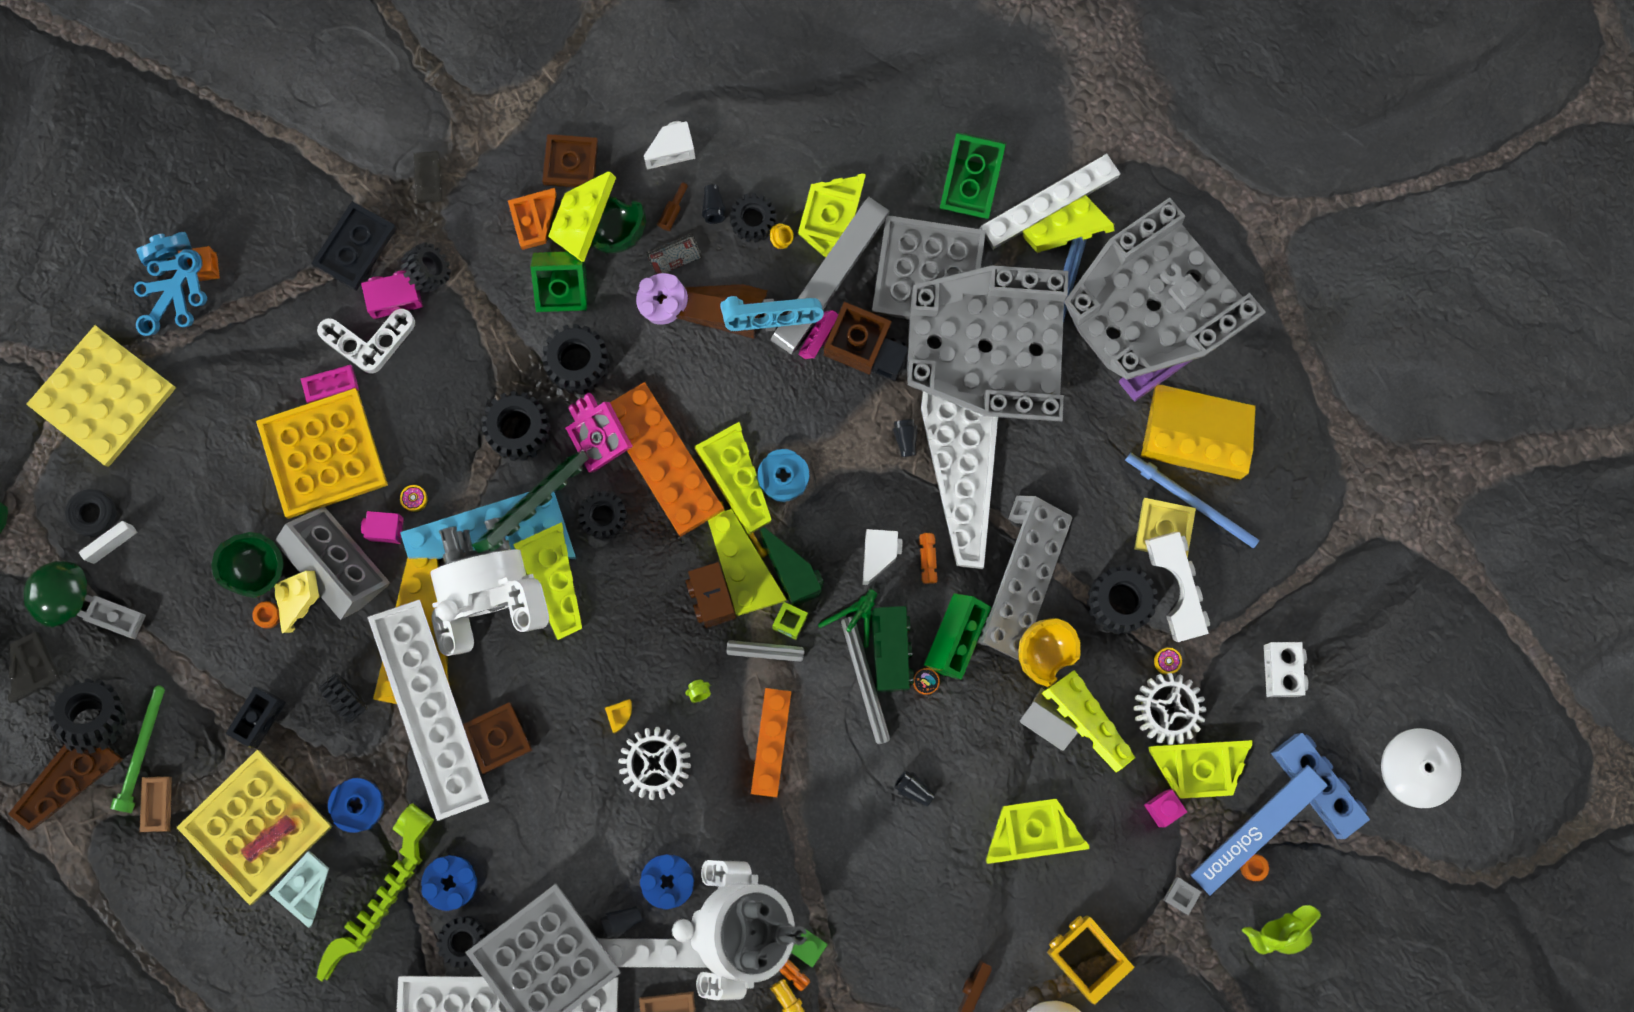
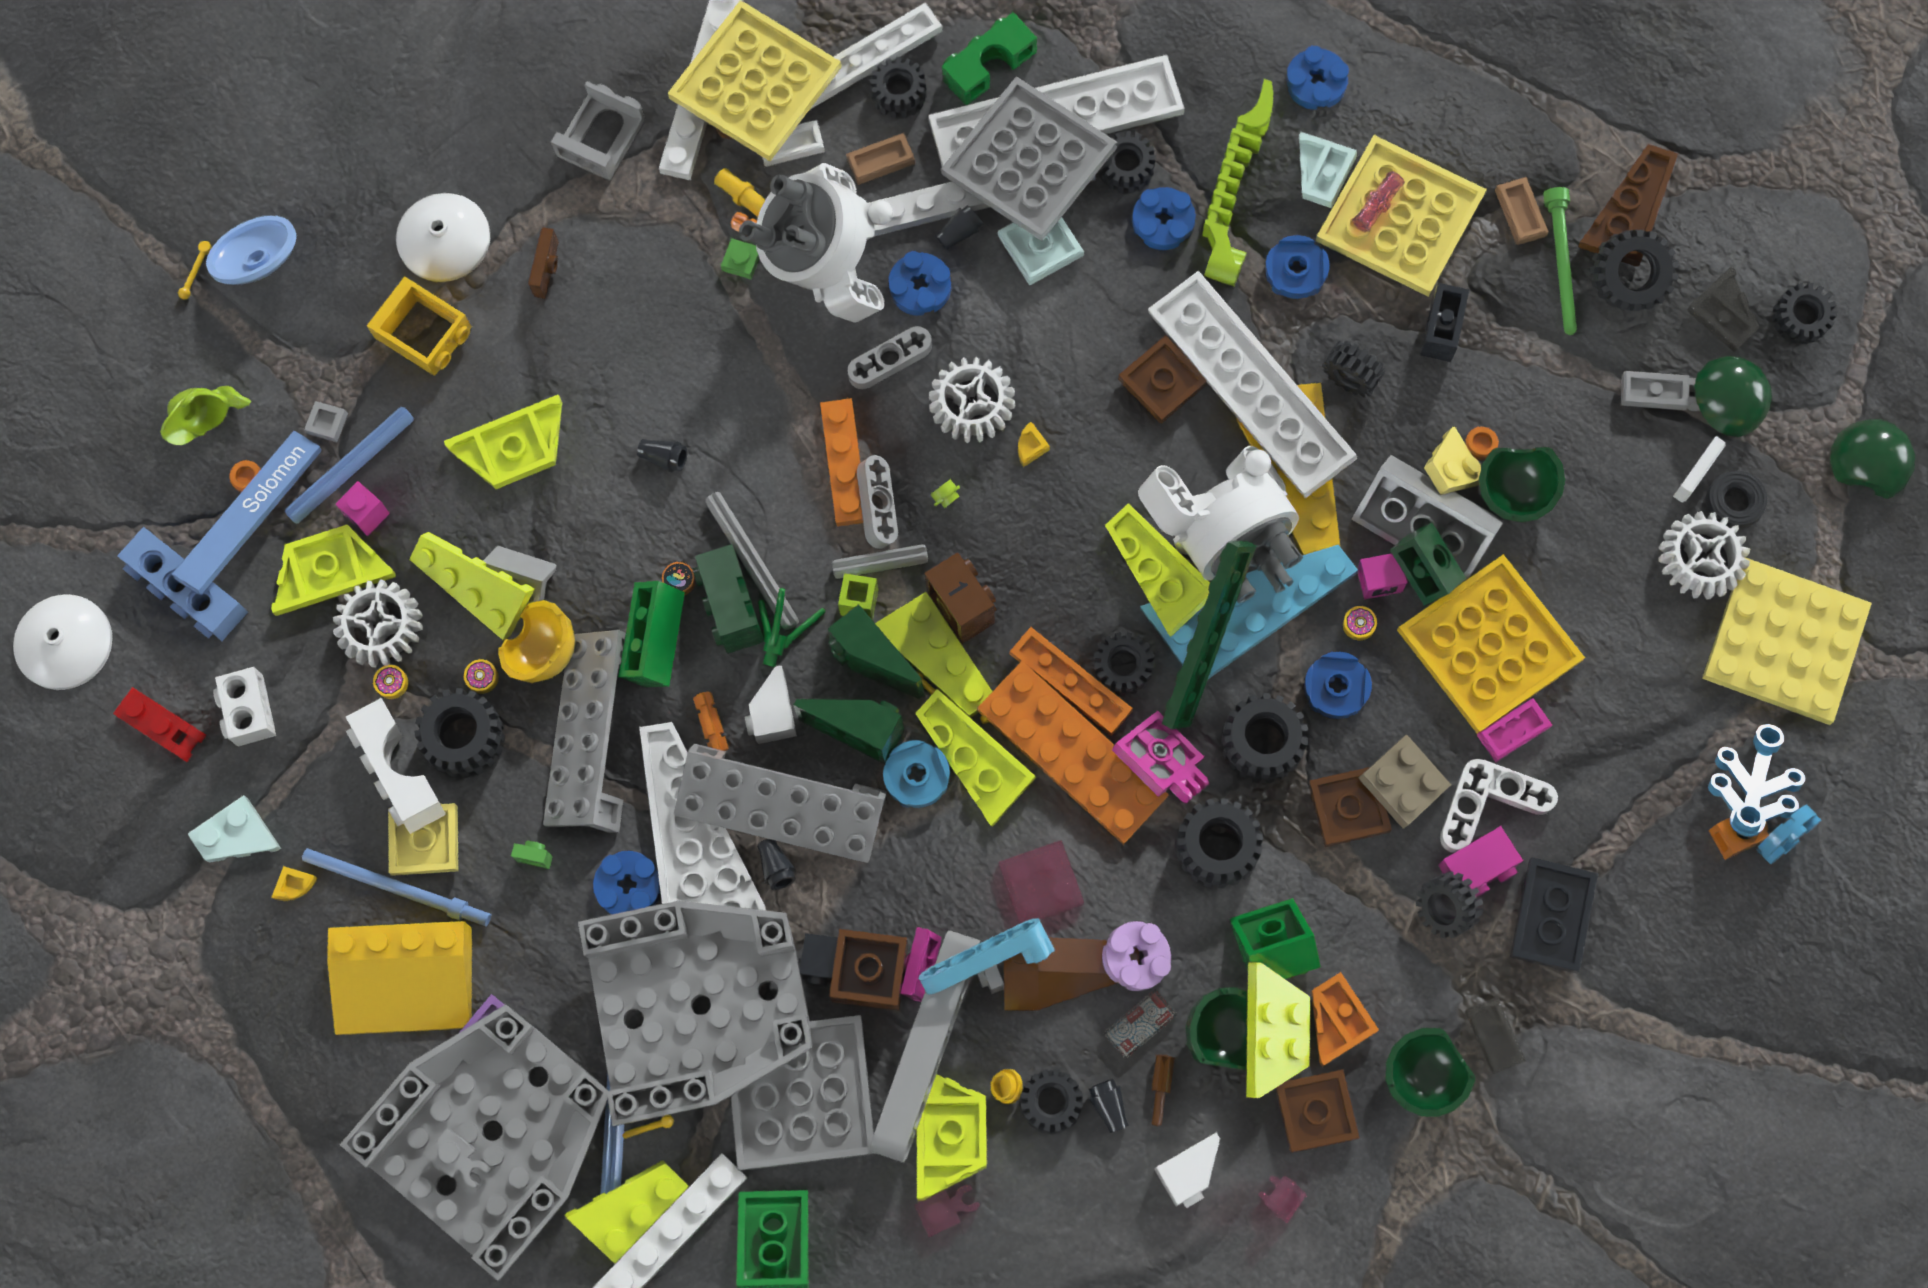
camera: 175 degrees right, 5 degrees down
(124, 456) = (1723, 576): none -> white gear
(261, 972) = (1322, 62): none -> blue plate
(345, 521) = (1428, 564): none -> dark green brick
(424, 367) = (1404, 781): none -> dark tan plate
(441, 441) = (1349, 700): none -> blue plate
(471, 362) = (1347, 808): none -> reddish brown plate
(483, 156) = (1428, 1073): none -> dark green cylinder
(567, 875) = (1037, 257): none -> light aqua plate
(613, 110) = (1284, 1199): none -> clear pink tile
(646, 513) = (1071, 681): none -> orange plate
(714, 371) = (1041, 882): none -> clear pink plate
(715, 811) = (865, 360): none -> light grey beam
(748, 689) = (871, 515): none -> light grey beam
(816, 517) = (856, 723): none -> dark green slope
(849, 167) = (940, 1211): none -> clear pink plate
(893, 475) = (779, 805): none -> light grey bracket
(1031, 446) = (615, 869): none -> blue plate
(1085, 493) = (532, 854): none -> bright green plate
(1096, 645) = (481, 676): none -> tile
(1169, 853) = (349, 465): none -> medium blue axle
(1268, 524) = (292, 884): none -> yellow tile
(1307, 574) = (233, 833): none -> light aqua wing
(1353, 677) = (158, 724): none -> red plate

